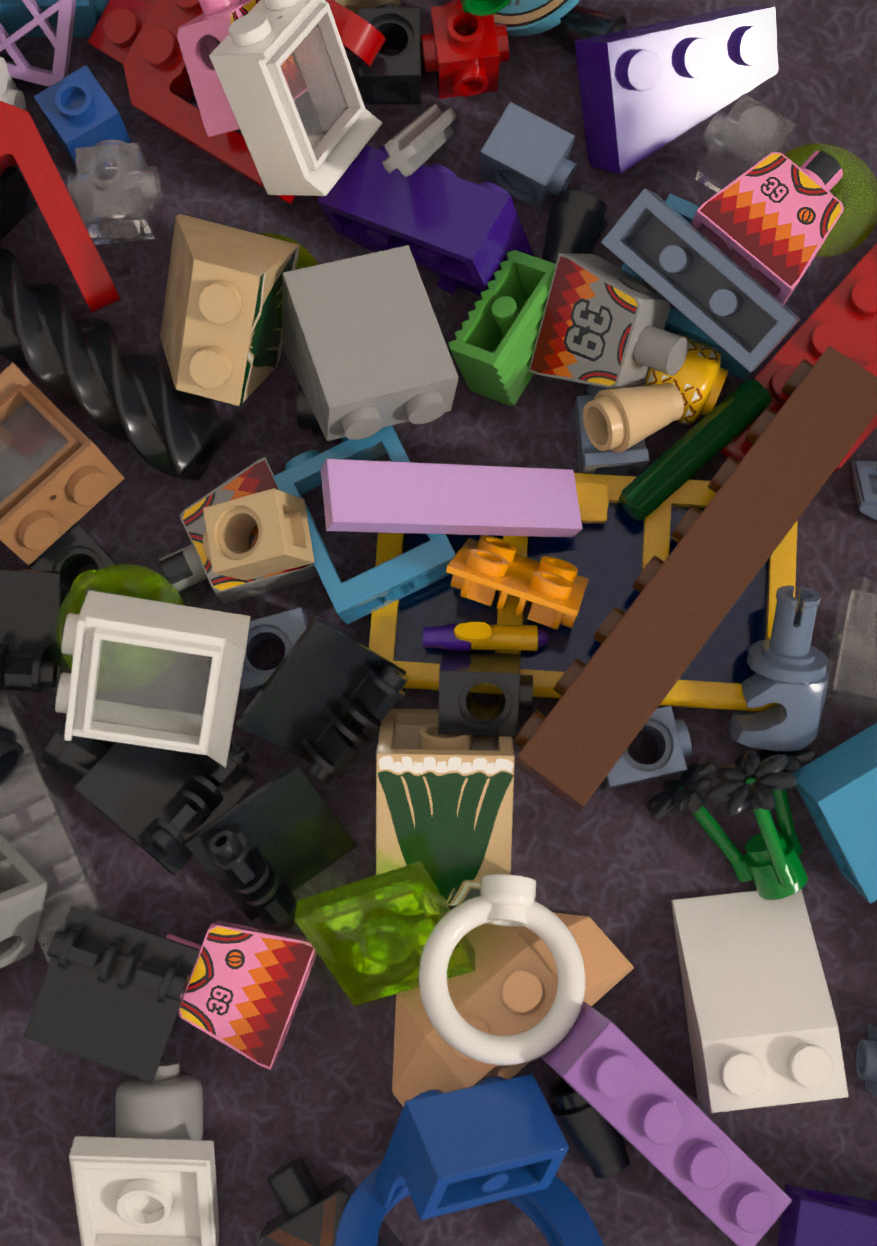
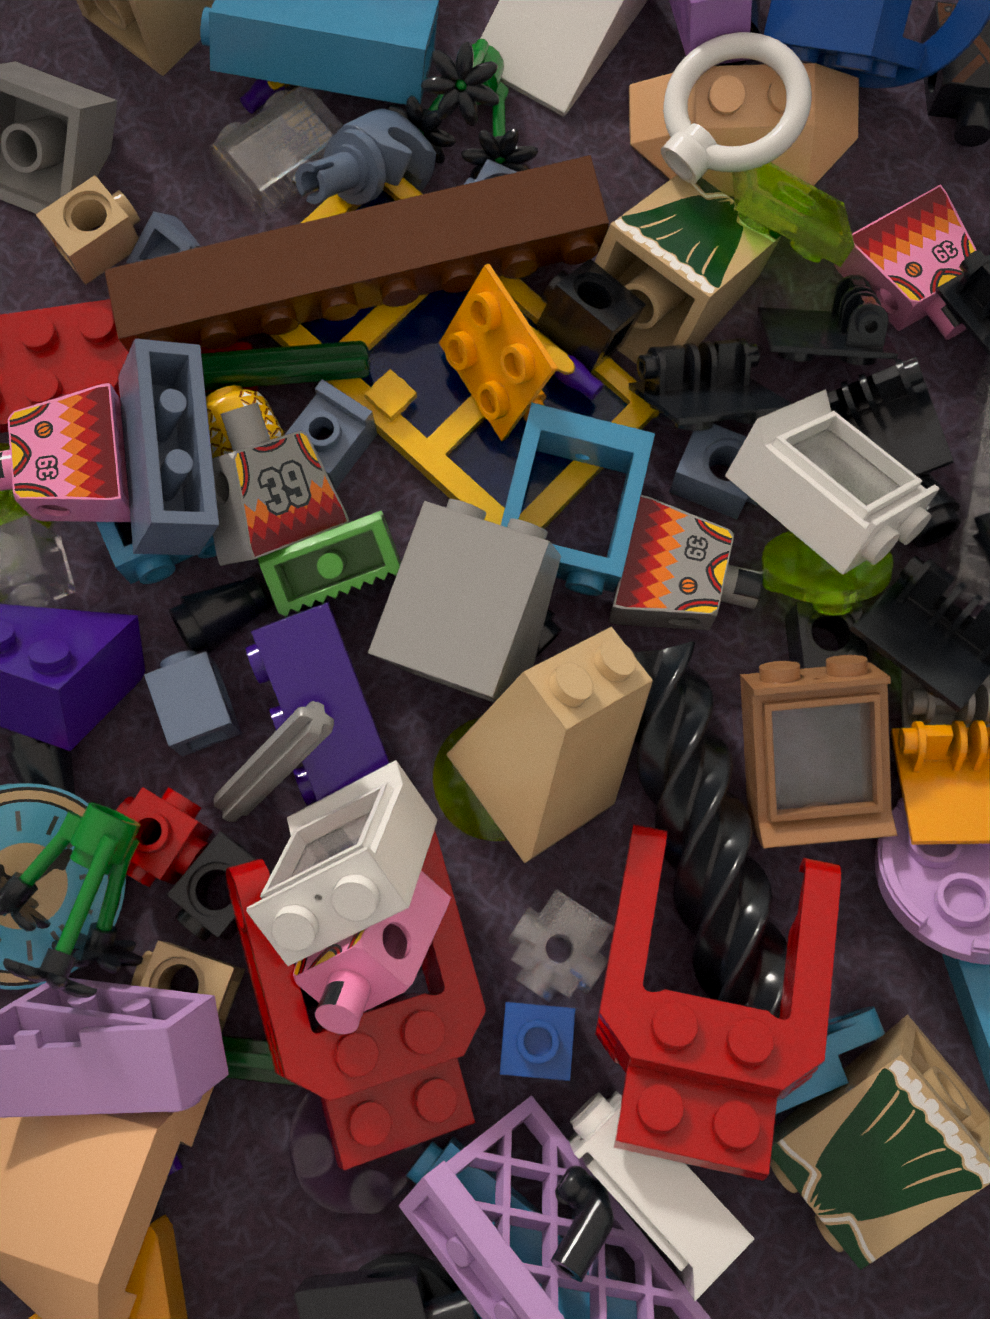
camera: 140 degrees left, 5 degrees down
(281, 541) = (649, 529): tan brick -> none
(449, 499) = (504, 443): lavender tile -> none
(630, 414) = (314, 406): tan cone -> none

